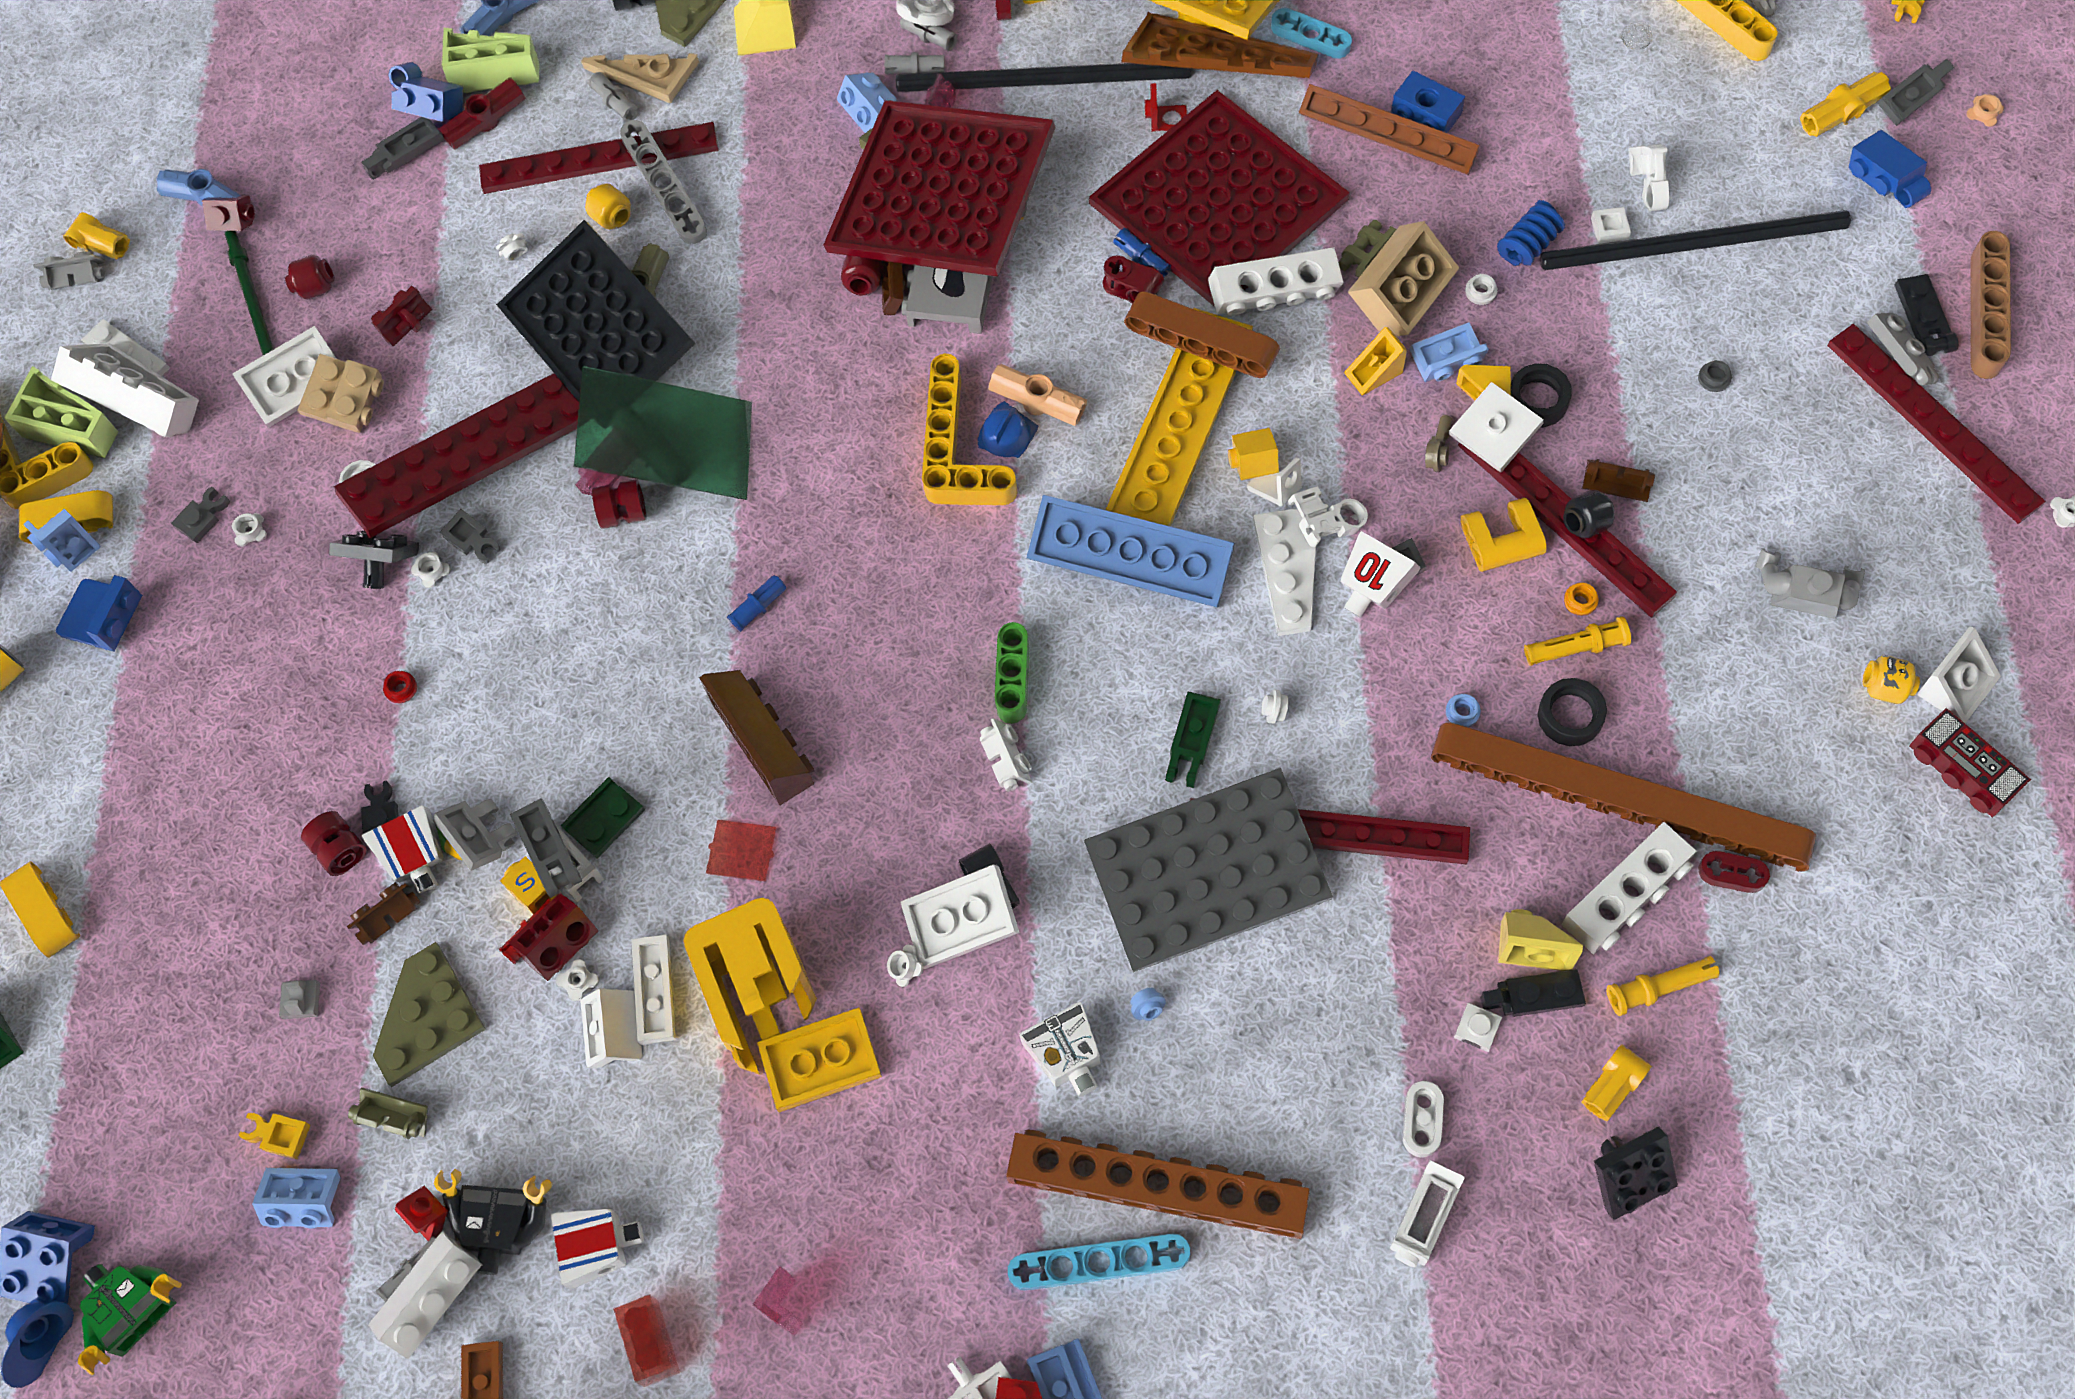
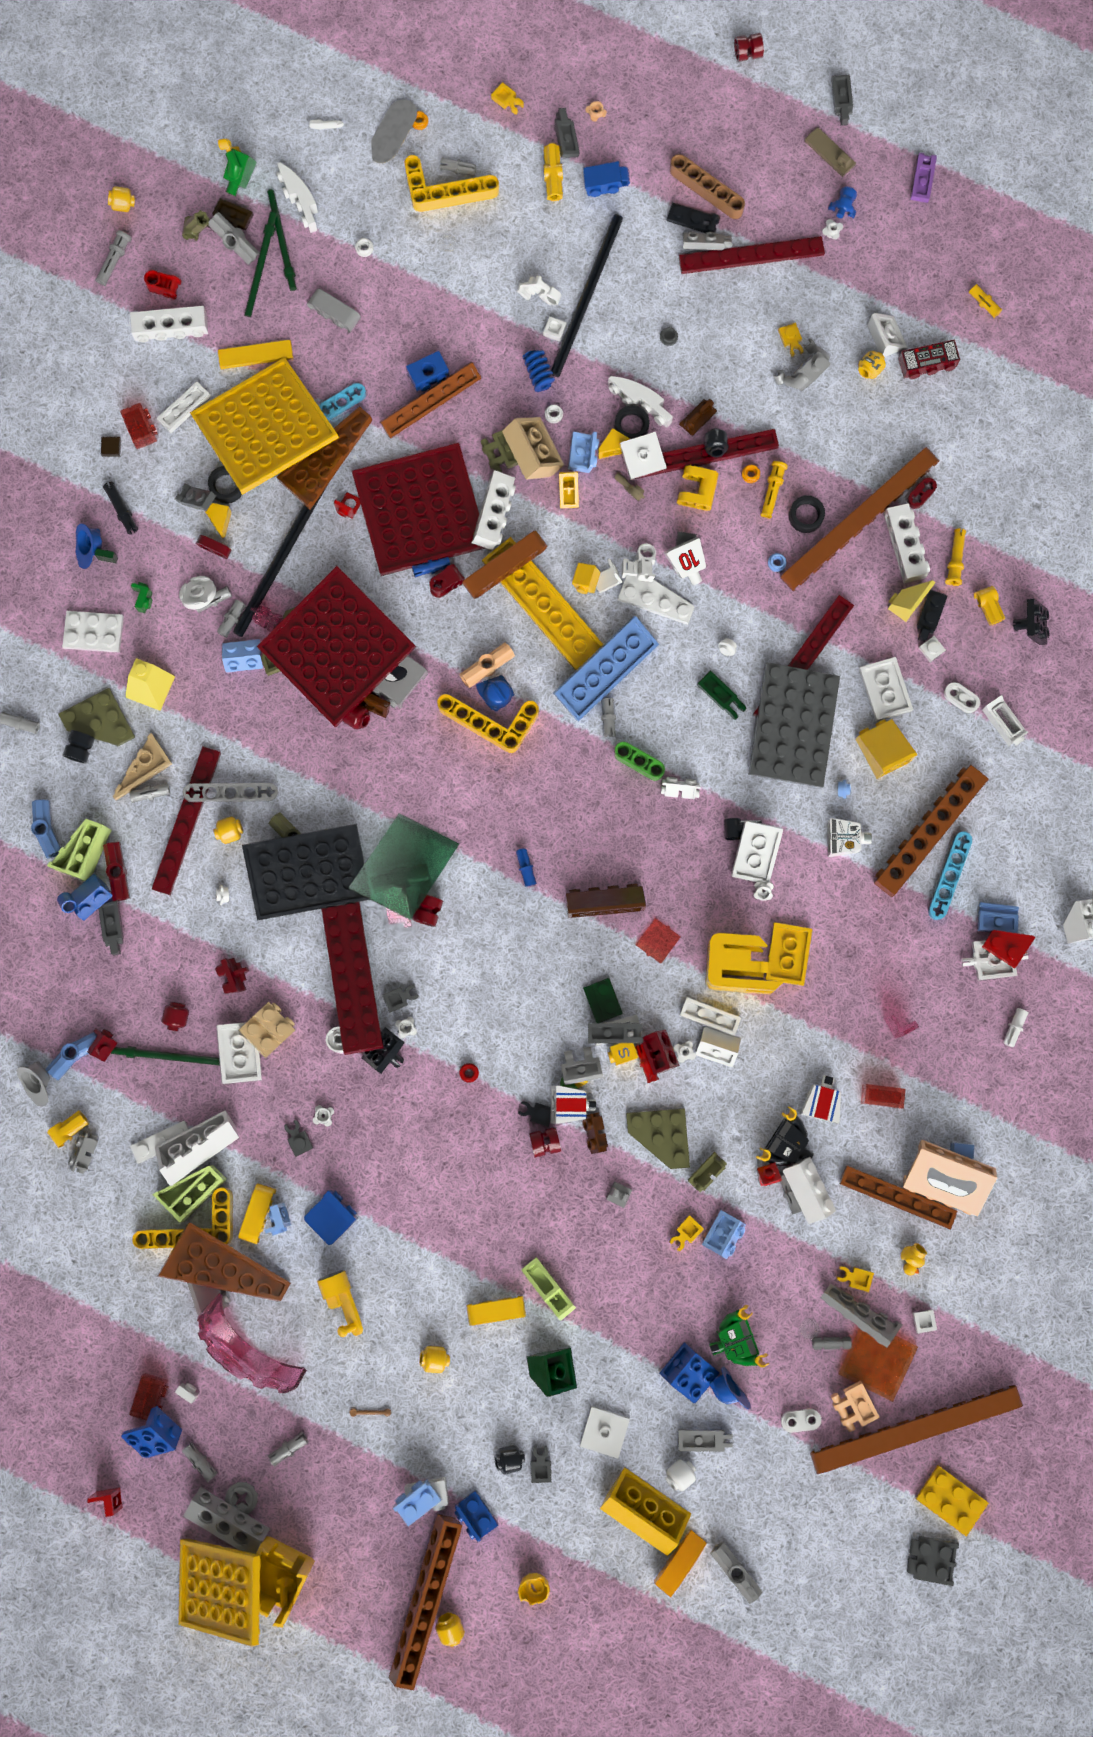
camera: 70 degrees left, 15 degrees up
(101, 970) = (548, 1289): none -> yellowish green slope
(147, 167) = (35, 1080): none -> light grey piece
(1058, 597) = (608, 717): none -> light grey pin
(1253, 1032) = (885, 748): none -> yellow slope
(1359, 985) = (885, 689): none -> white plate
(1589, 383) = (636, 393): none -> white slope
(1845, 542) = (791, 336): none -> yellow plate

